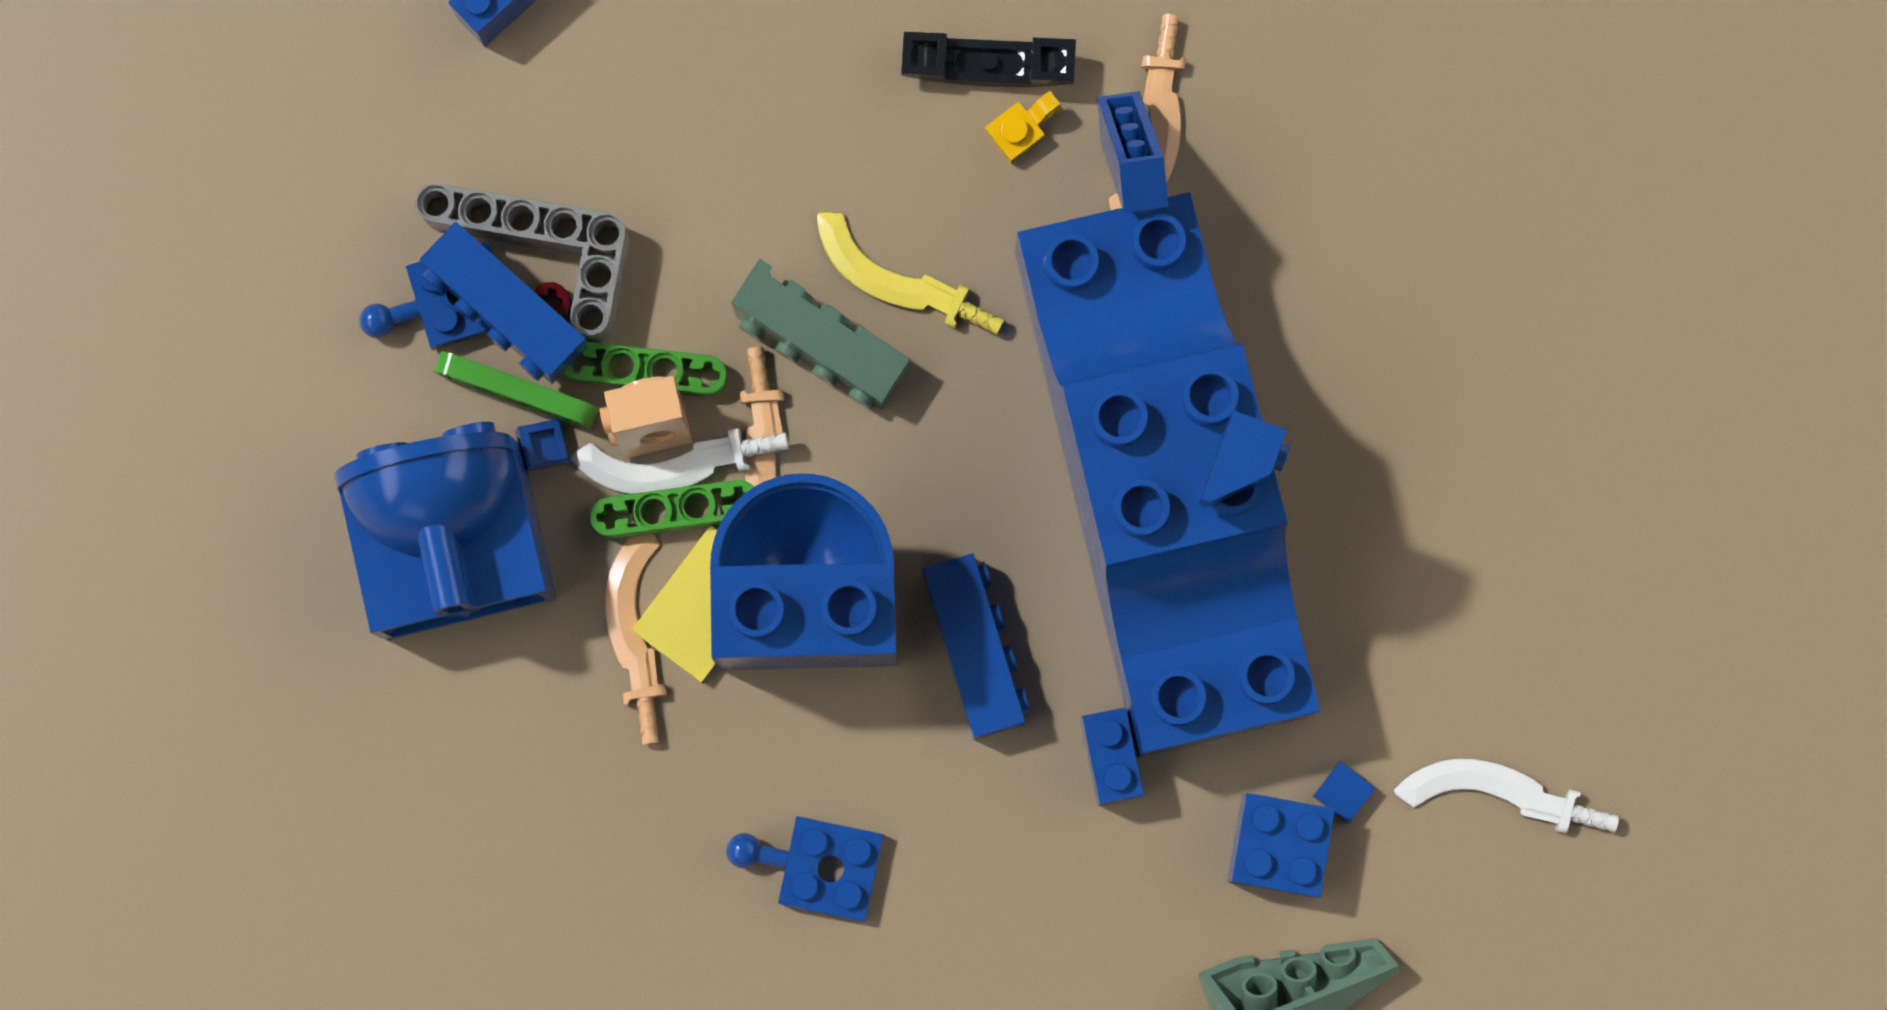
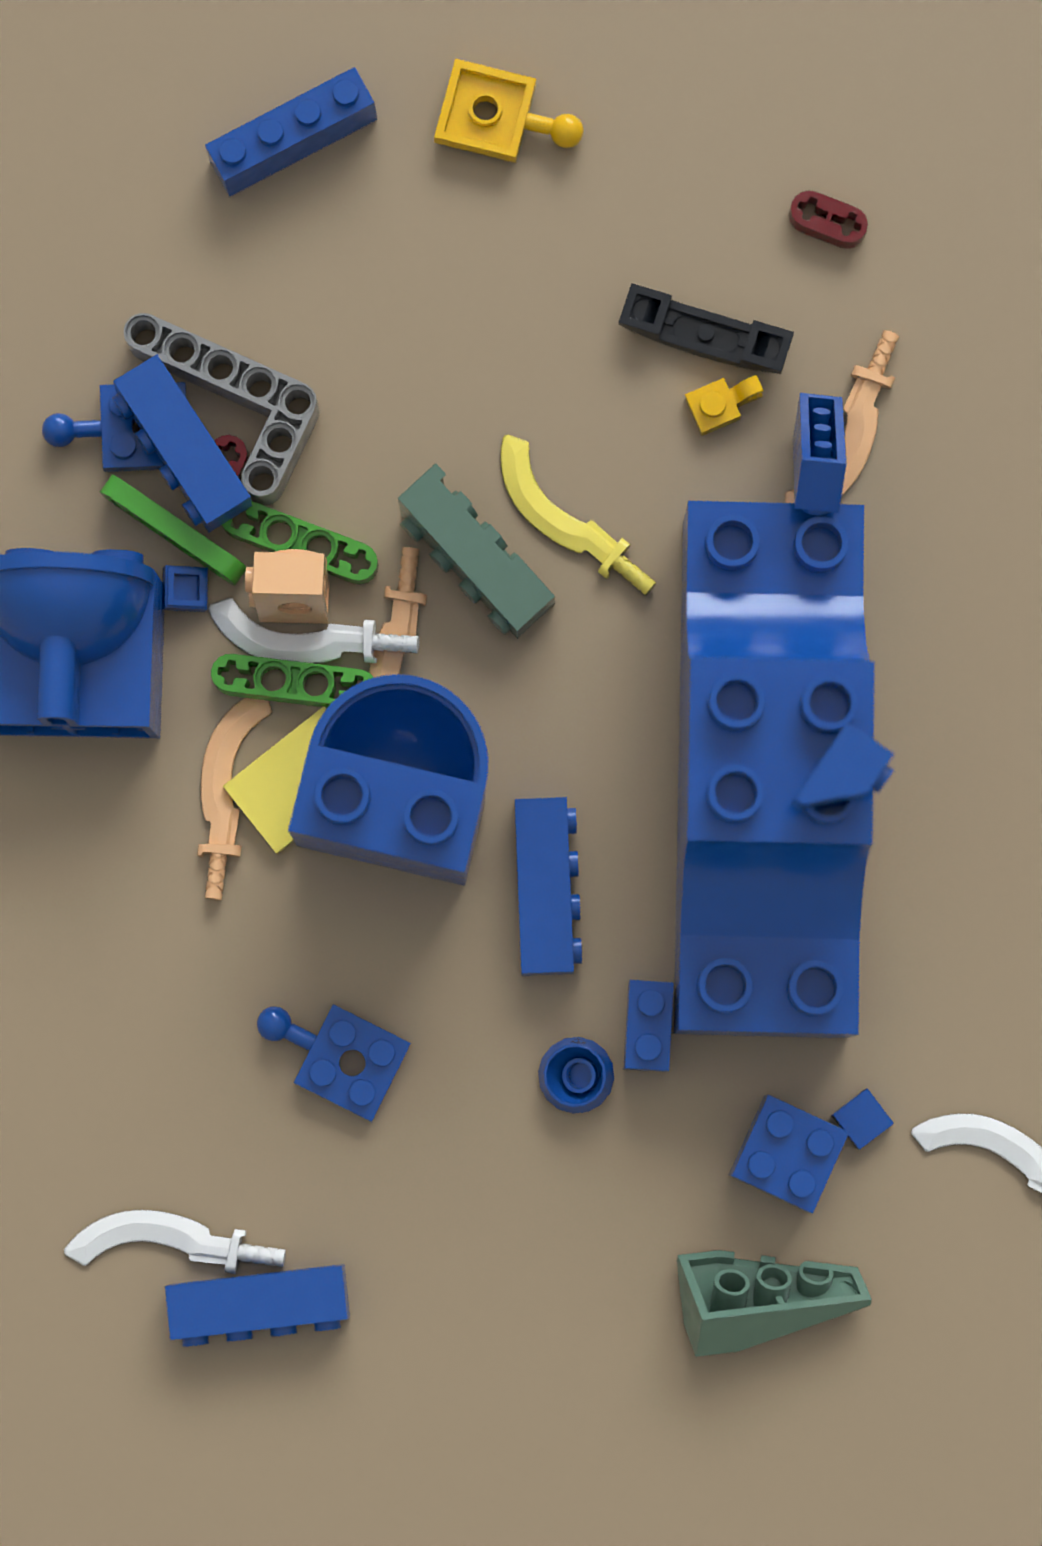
camera: 15 degrees right, 0 degrees up
(1053, 823) = (589, 1074): none -> blue hat

